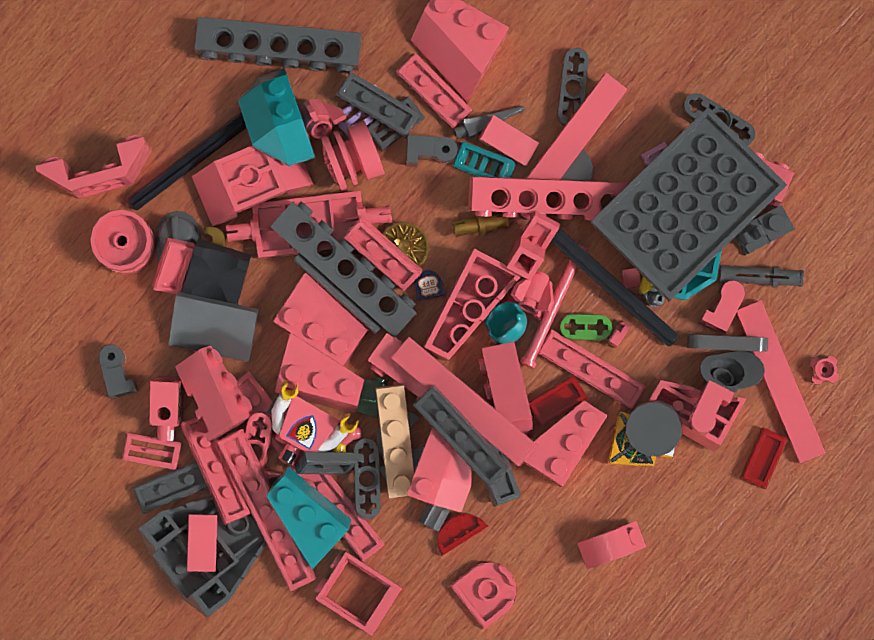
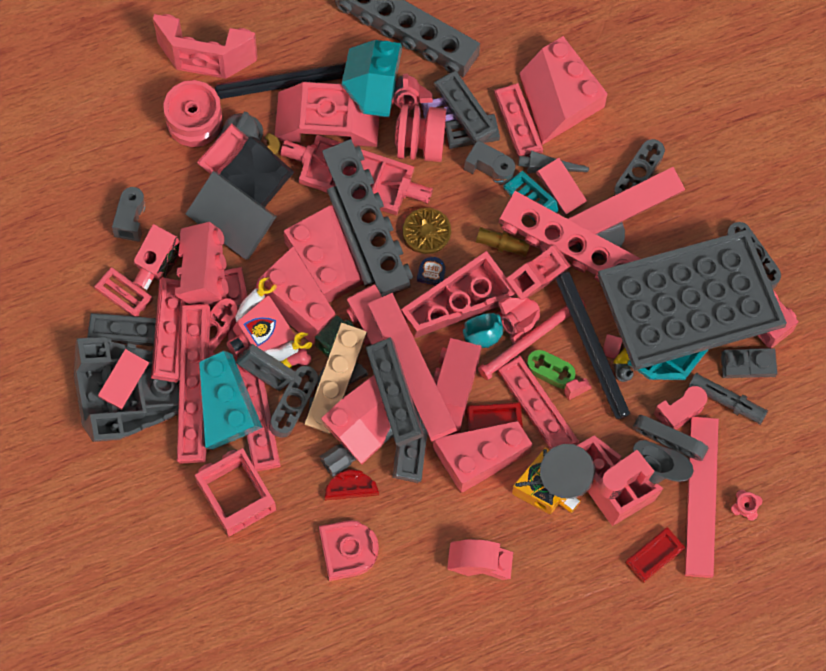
camera: 25 degrees right, 15 degrees down
(382, 253) = (406, 223): coral tile -> none

